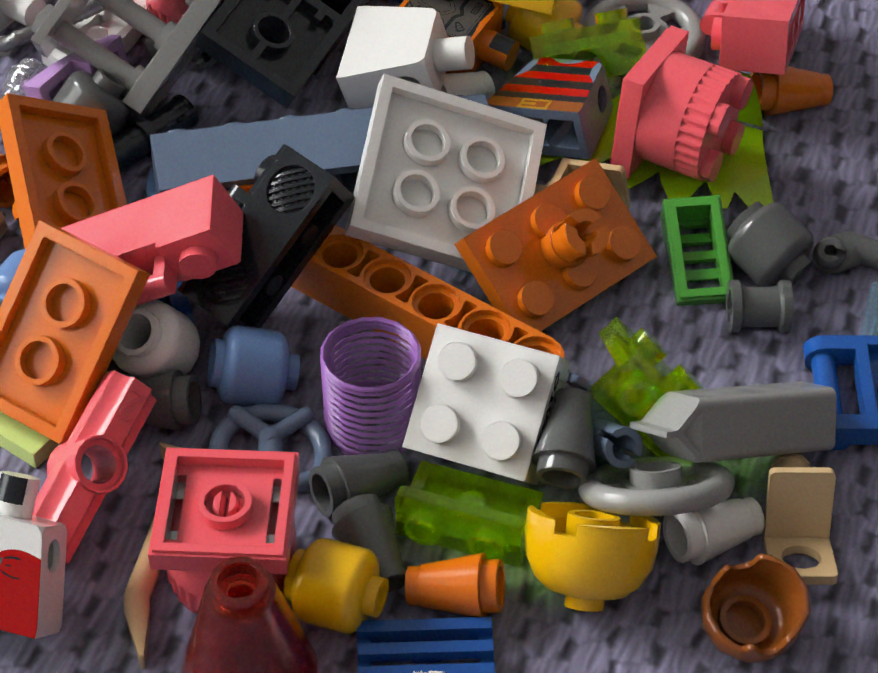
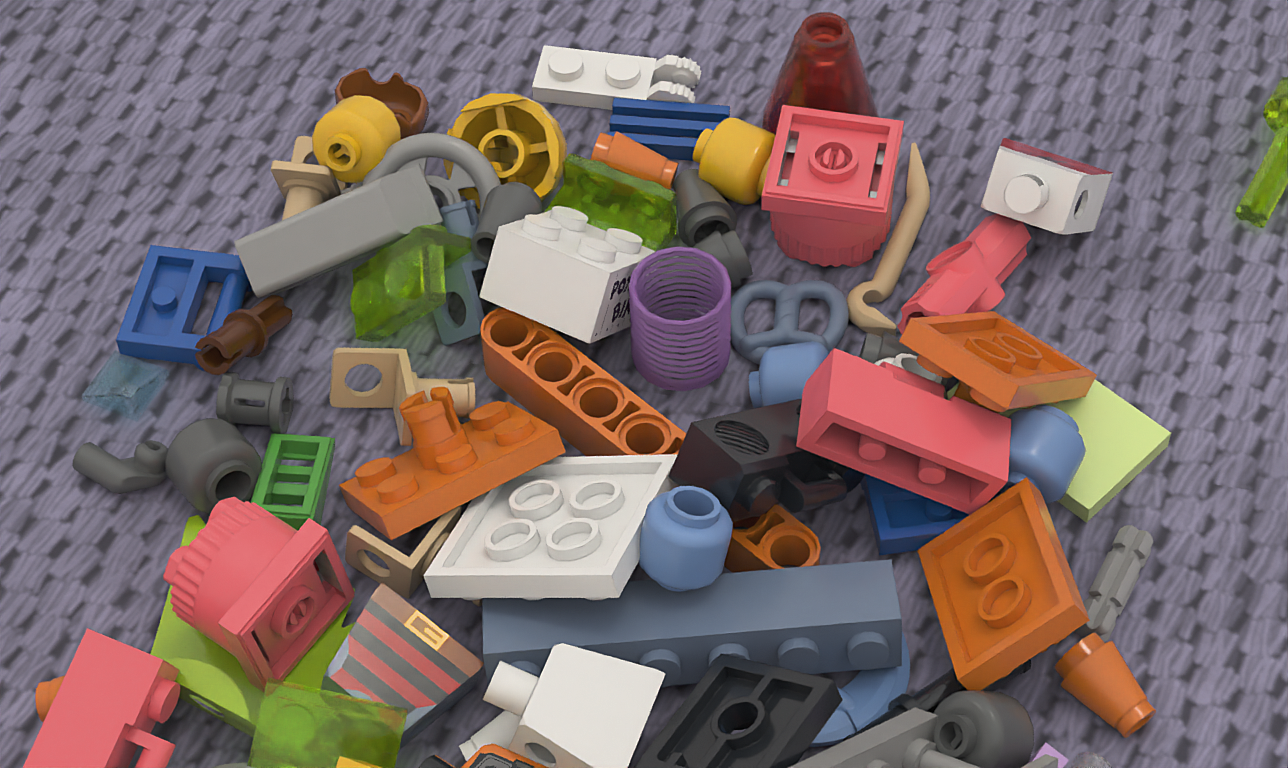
camera: 170 degrees left, 5 degrees up
(332, 136) = (684, 538): none -> medium blue head
(595, 313) = (395, 385): none -> tan bracket
(755, 510) = (354, 137): none -> yellow head
(796, 338) = (242, 335): none -> reddish brown axle

